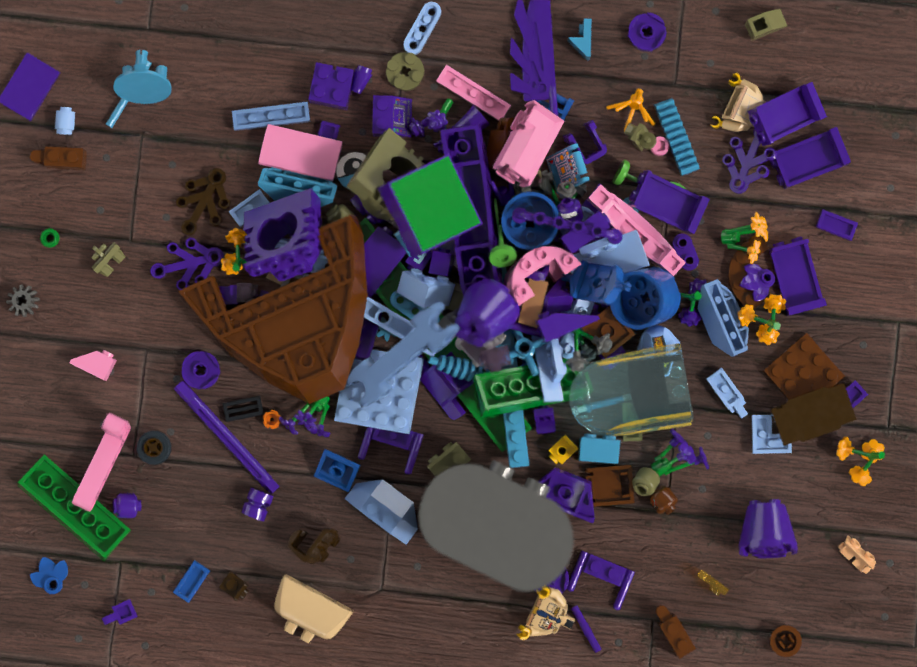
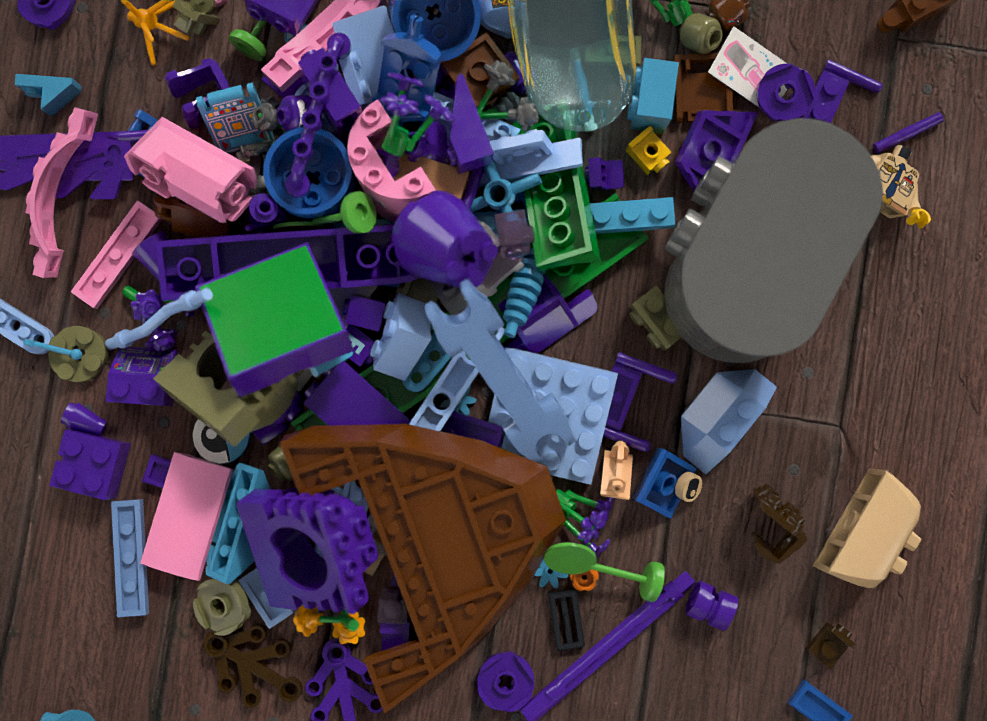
camera: 85 degrees left, 0 degrees up
(233, 175) = (218, 619): none -> olive plate
(270, 398) = (543, 571): none -> dark azure plant
(284, 411) = (577, 559): none -> bright green piece
(335, 486) = (688, 486): none -> tan tile
(343, 437) = (617, 472): none -> light nougat hinge
(404, 72) = (75, 354): none -> dark azure hinge
(416, 105) = (187, 302): none -> light blue bar
(504, 192) = (262, 208): none -> dark purple cone
(507, 41) = (44, 187): none -> bright pink piece
(551, 291) = (421, 147): none -> dark purple plate
(554, 278) = (397, 137): none -> plant
(612, 531) = (792, 78): none -> dark purple plate
(622, 519) = (743, 64): none -> white sticker

